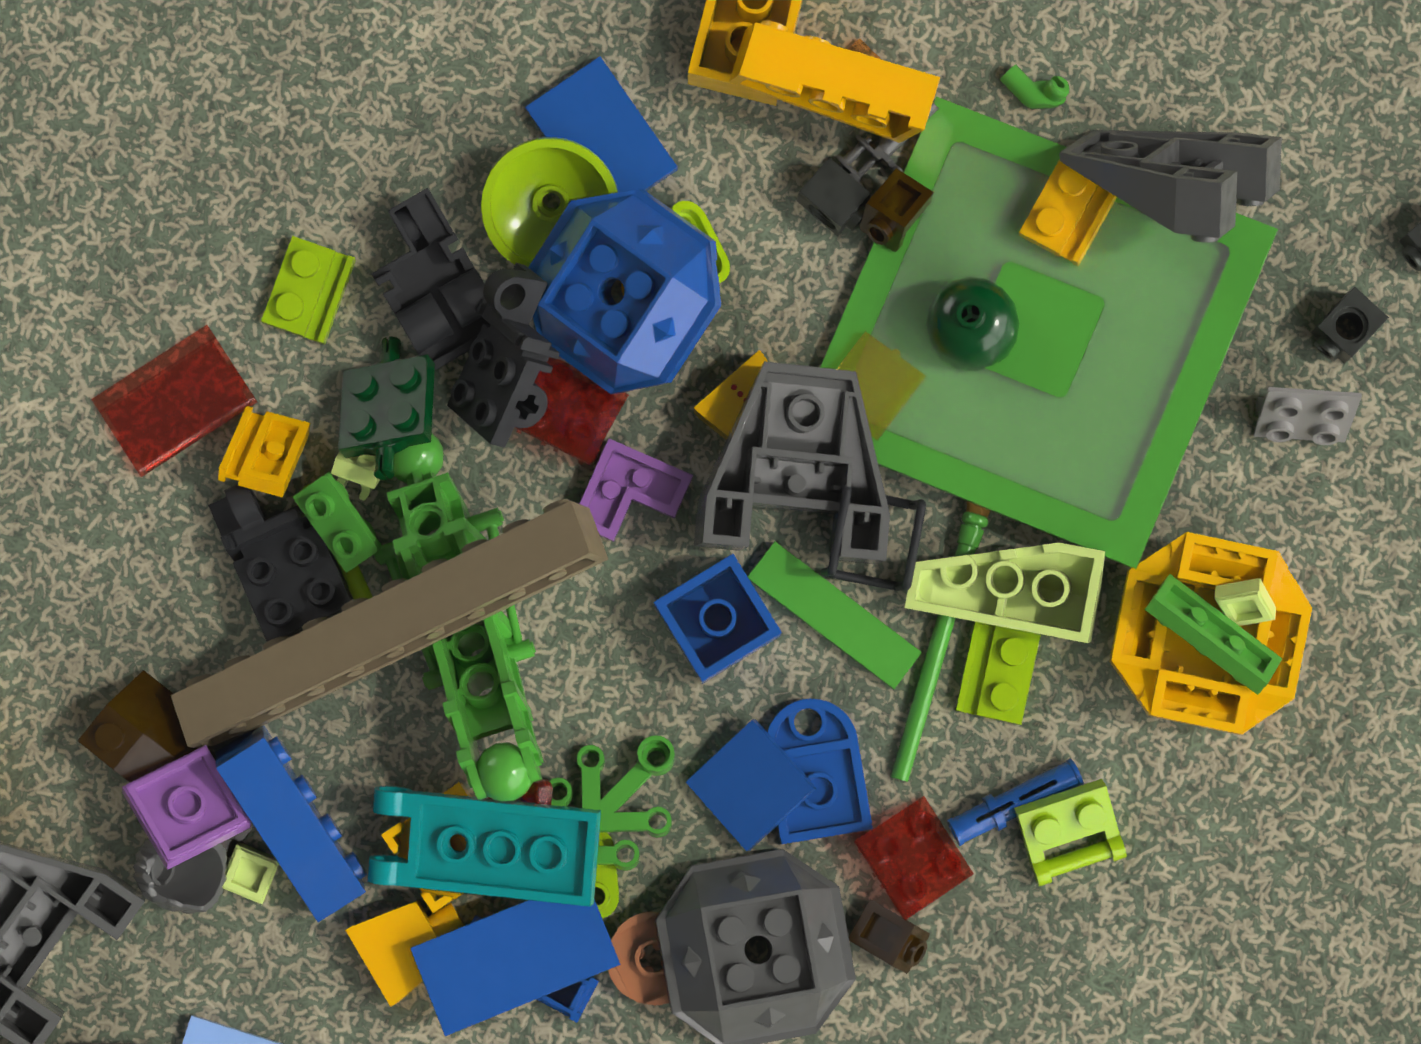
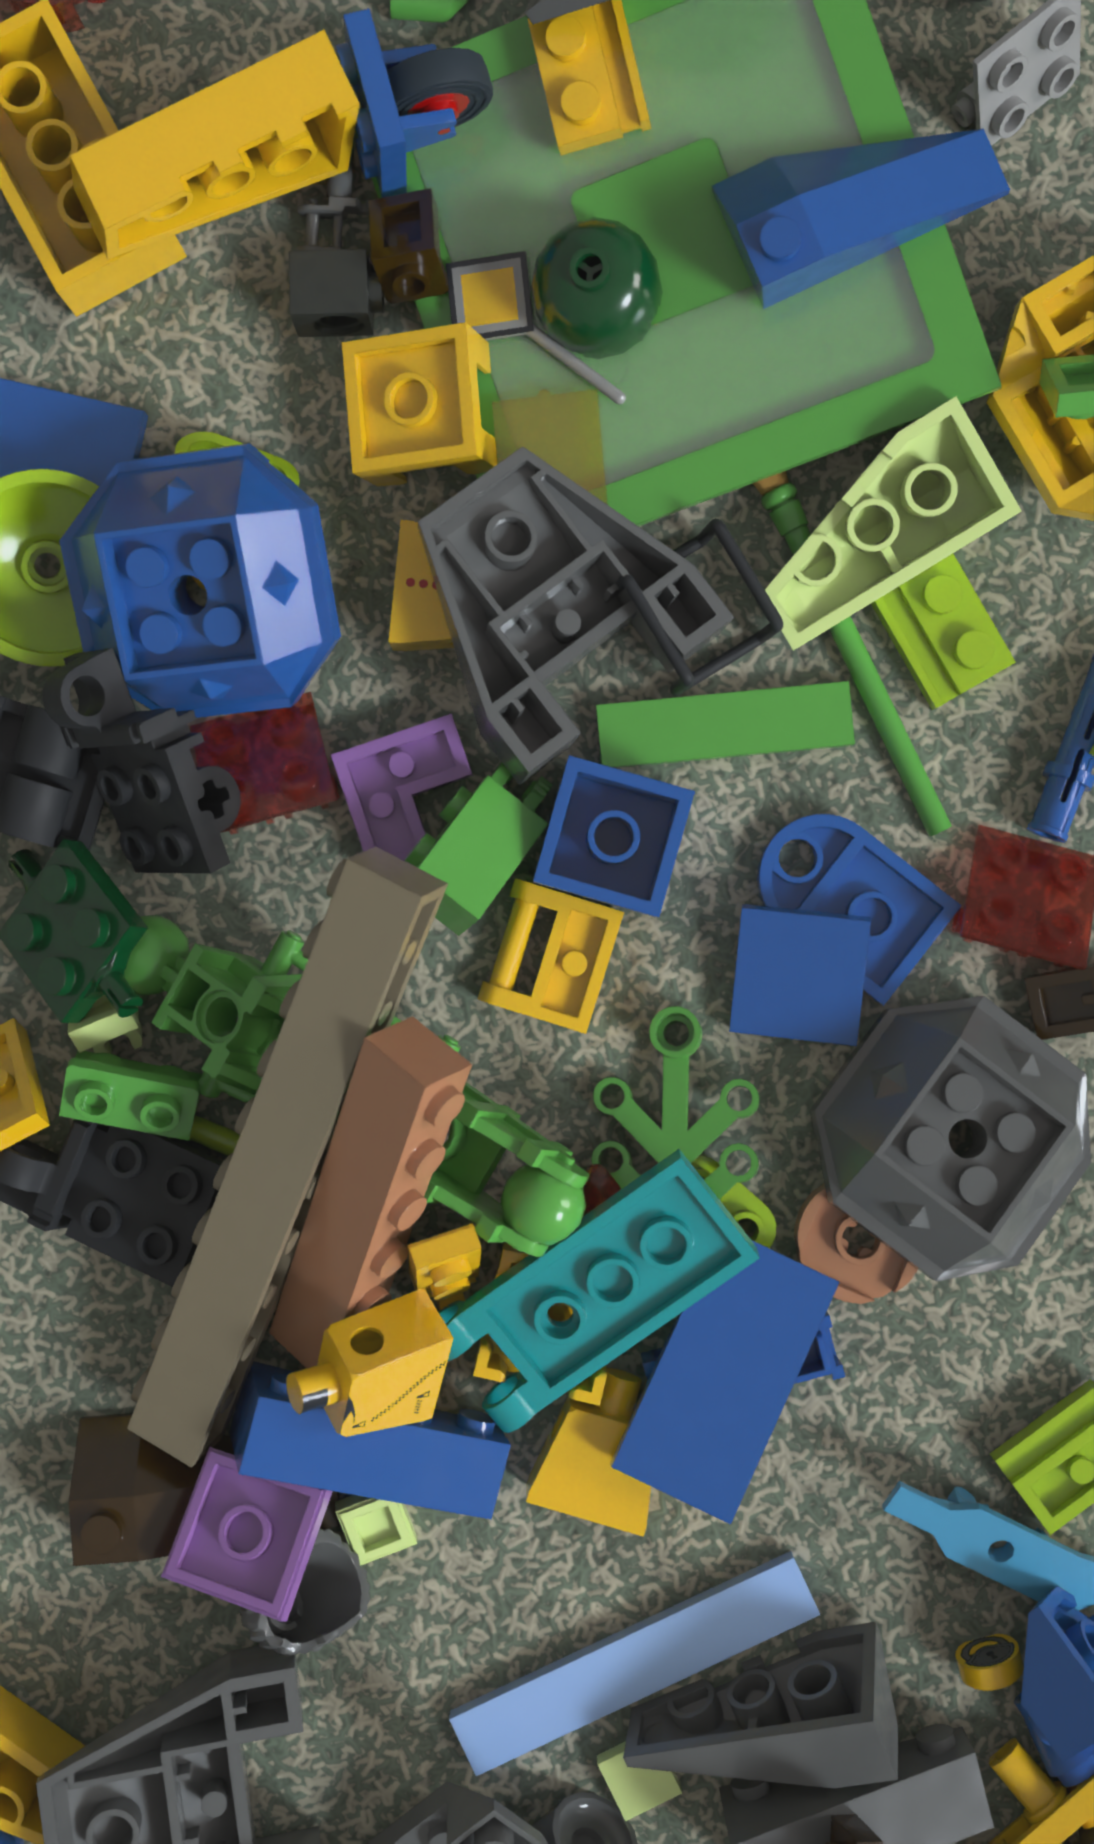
camera: 35 degrees left, 5 degrees up
(339, 780) = (377, 1367): none -> yellow torso
(414, 686) = (371, 1182): none -> nougat brick
(422, 759) = (446, 1264): none -> yellow hinge
(636, 665) = (571, 963): none -> yellow plate
(643, 558) = (480, 845): none -> bright green hinge
(823, 297) = (416, 403): none -> yellow panel
(915, 279) = (496, 302): none -> piece
(959, 138) = (407, 97): none -> blue plate
(1130, 396) = (838, 207): none -> blue wedge

